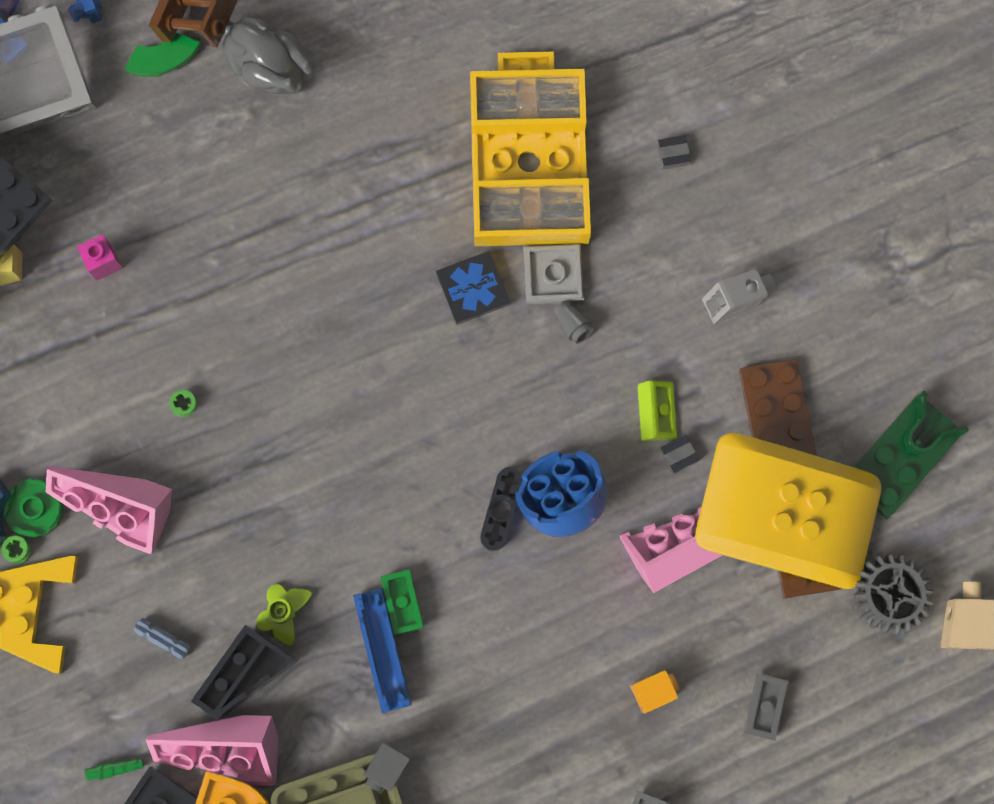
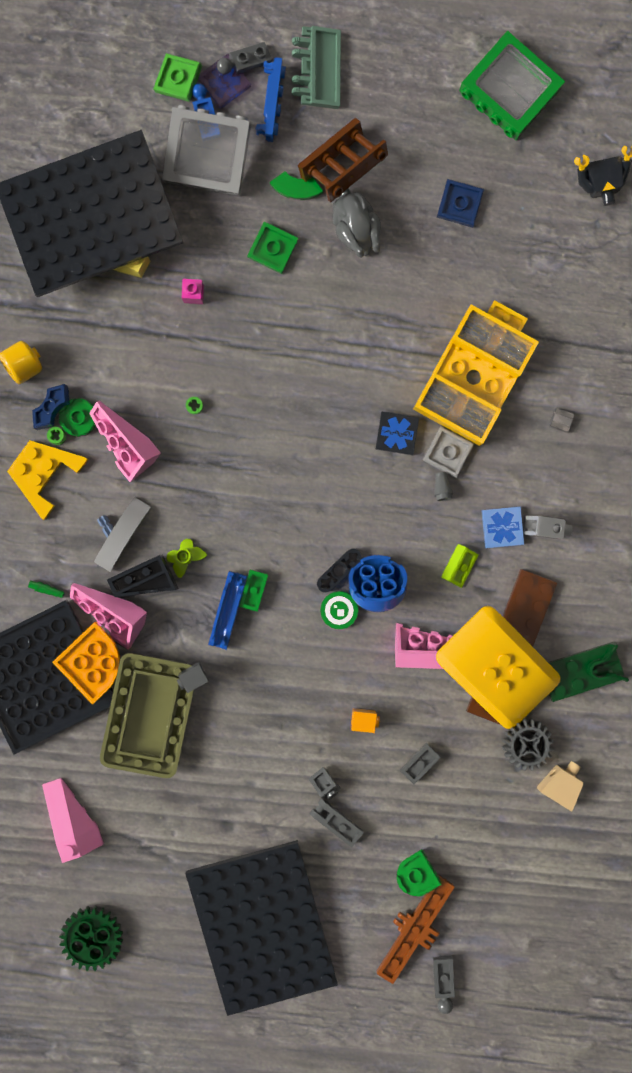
camera: 35 degrees right, 10 degrees up
(174, 147) = (272, 247): none -> green tile
(178, 631) = (121, 534): none -> light grey slope
(532, 562) = (339, 610): none -> green tile
(679, 454) = (457, 597): tile -> none
(682, 329) = (502, 527): none -> medium blue tile

